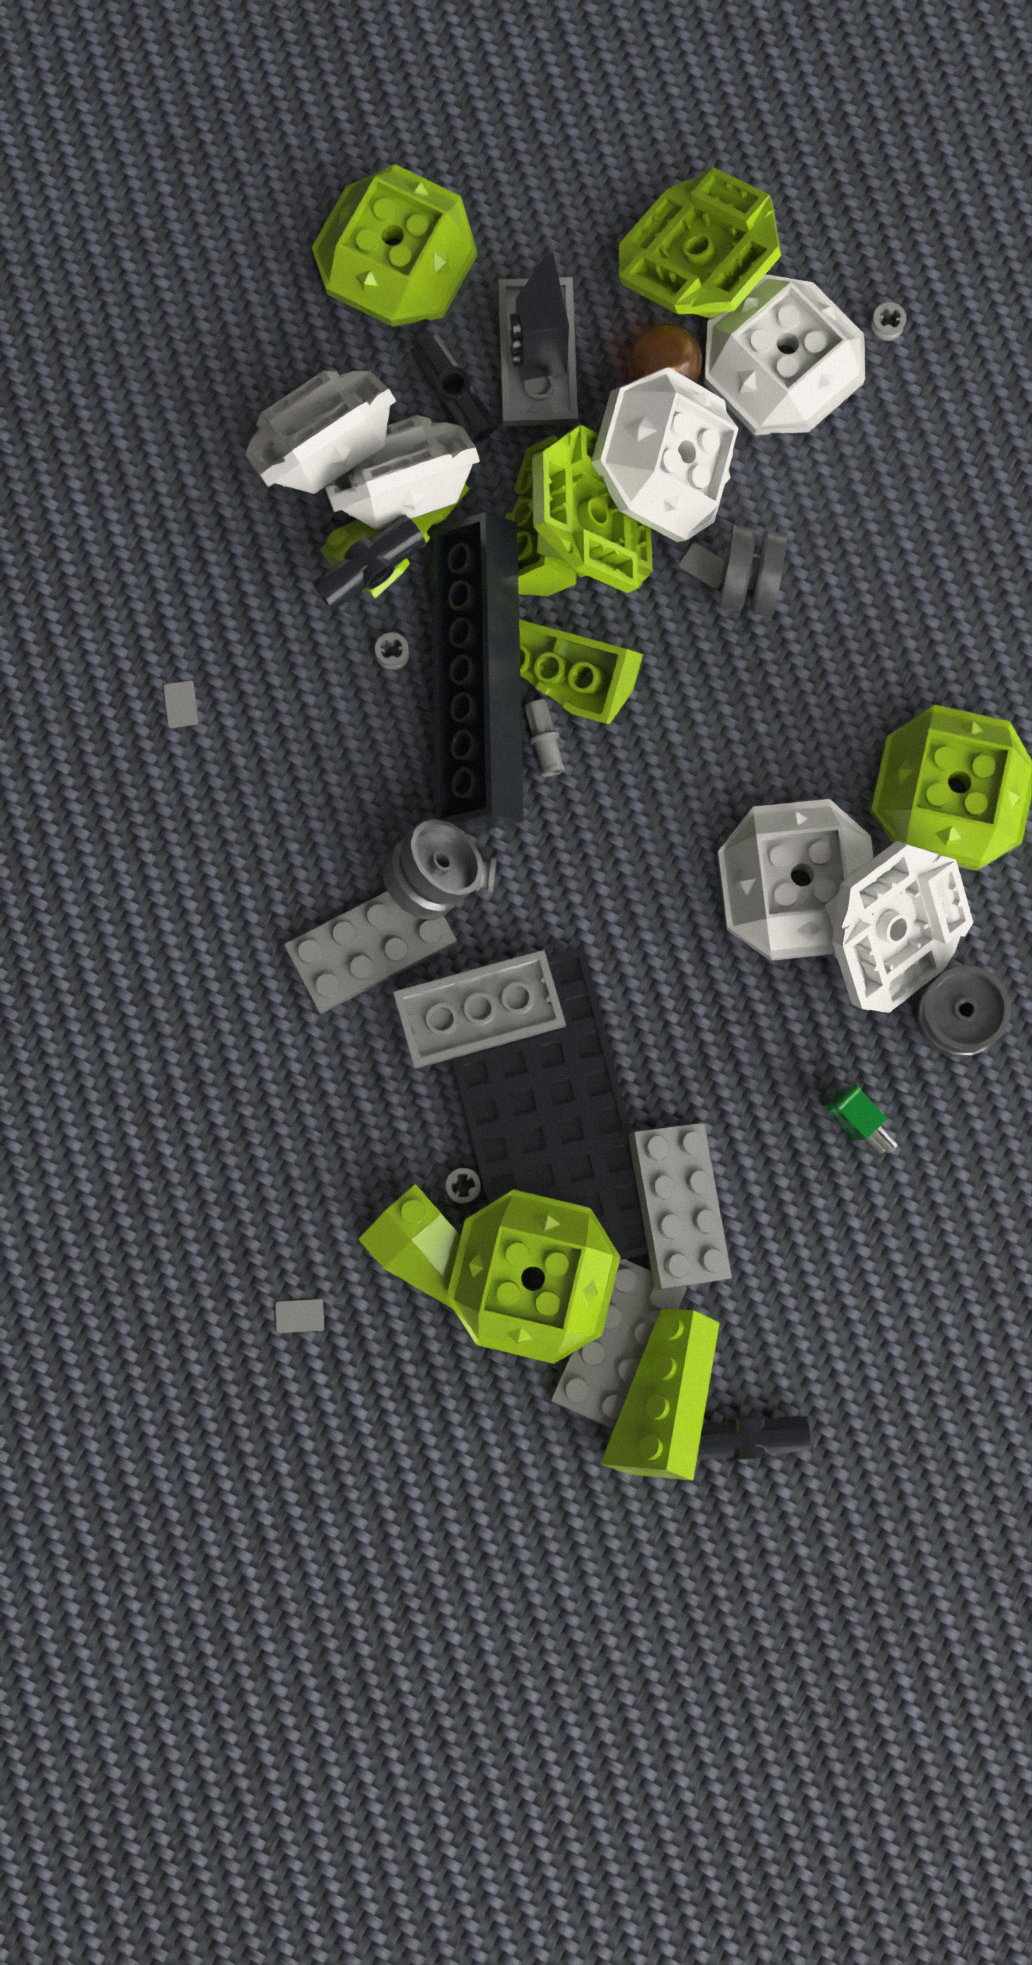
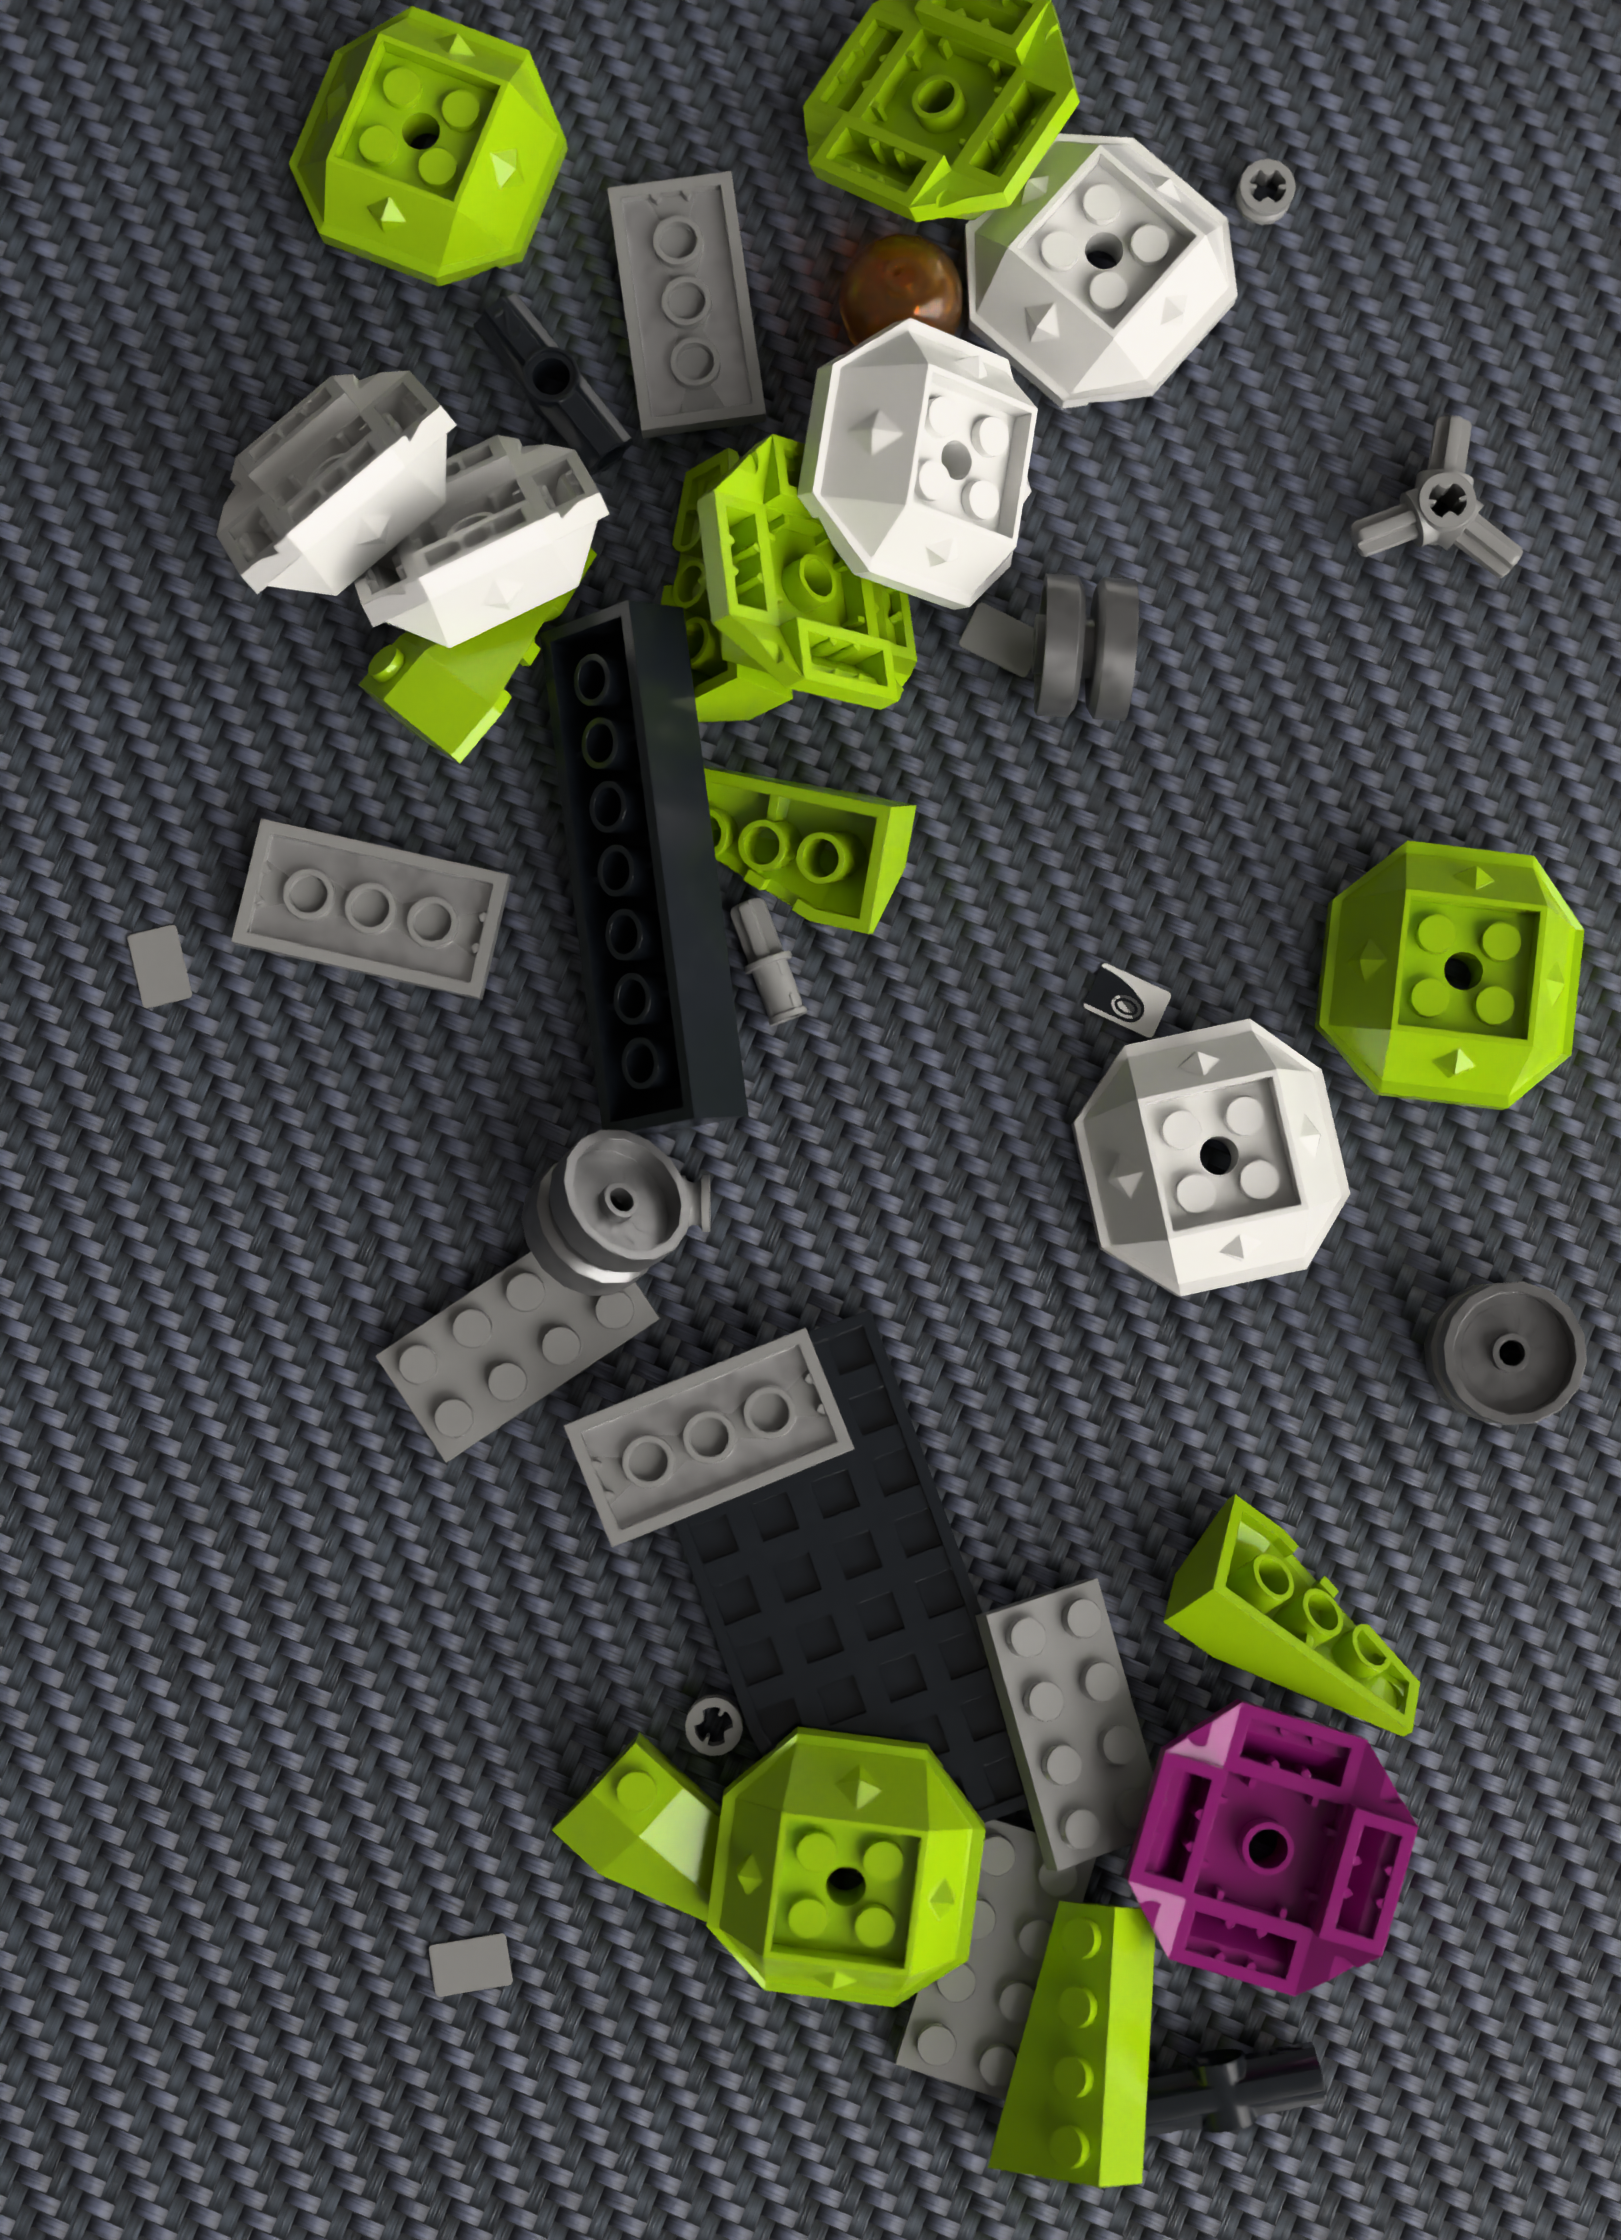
camera: 10 degrees left, 5 degrees up
(311, 682) = (371, 909): none -> piece
(369, 562) = (442, 707): black piece -> none
(391, 640) = (496, 822): light grey bush -> none
(540, 325) = (686, 264): black slope -> none
(757, 784) = (1127, 1000): none -> sticker
(802, 1153) = (1266, 1614): none -> lime wedge
(831, 1279) = (1323, 1890): none -> magenta piece
(860, 1118) = (1351, 1546): green piece -> none
(897, 924) = (1385, 1227): white piece -> none
(974, 500) = (1461, 525): none -> light grey bush

